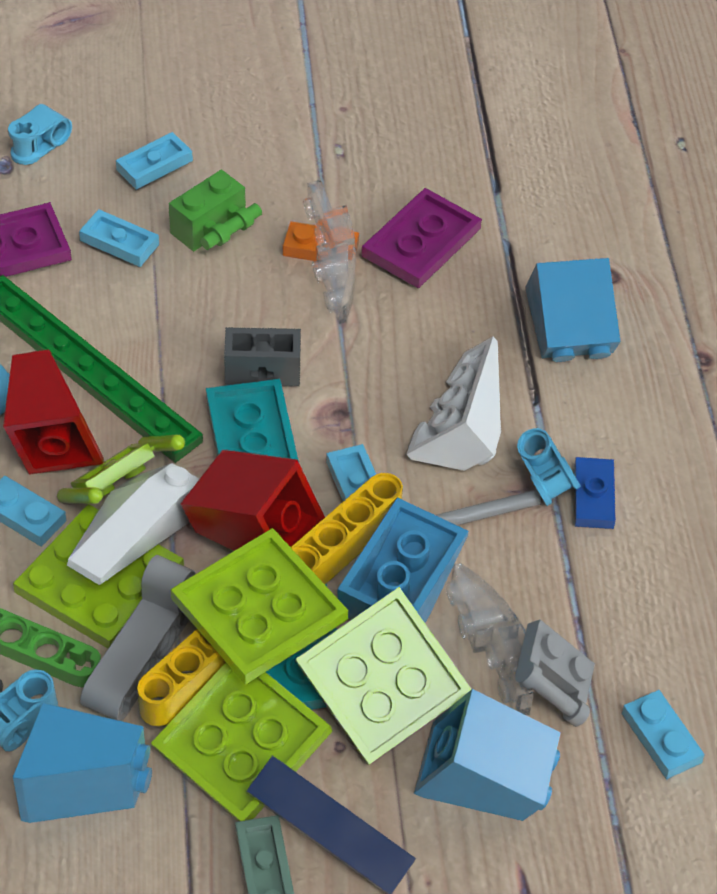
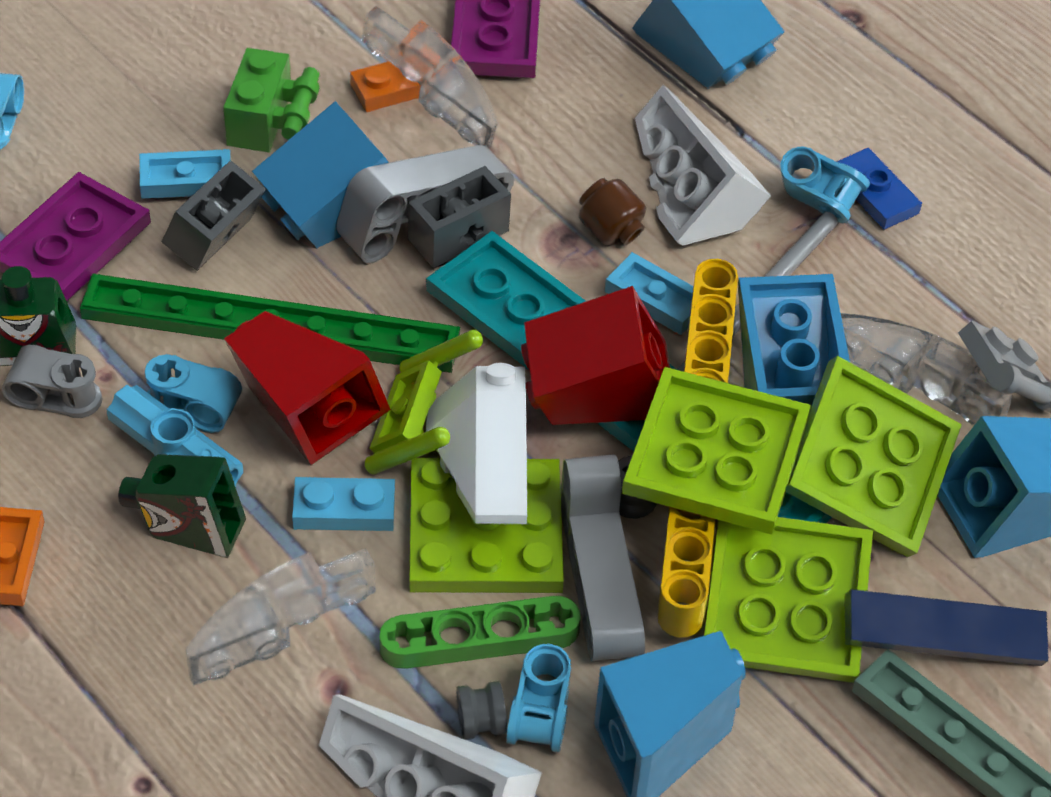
camera: 35 degrees left, 0 degrees up
(103, 273) = (213, 215): none -> dark grey brick
(154, 160) = (147, 77): medium azure plate -> none
(205, 288) = (313, 173): none -> dark azure slope
(215, 309) = (380, 195): none -> light grey beam
(376, 409) = (612, 212): none -> reddish brown head

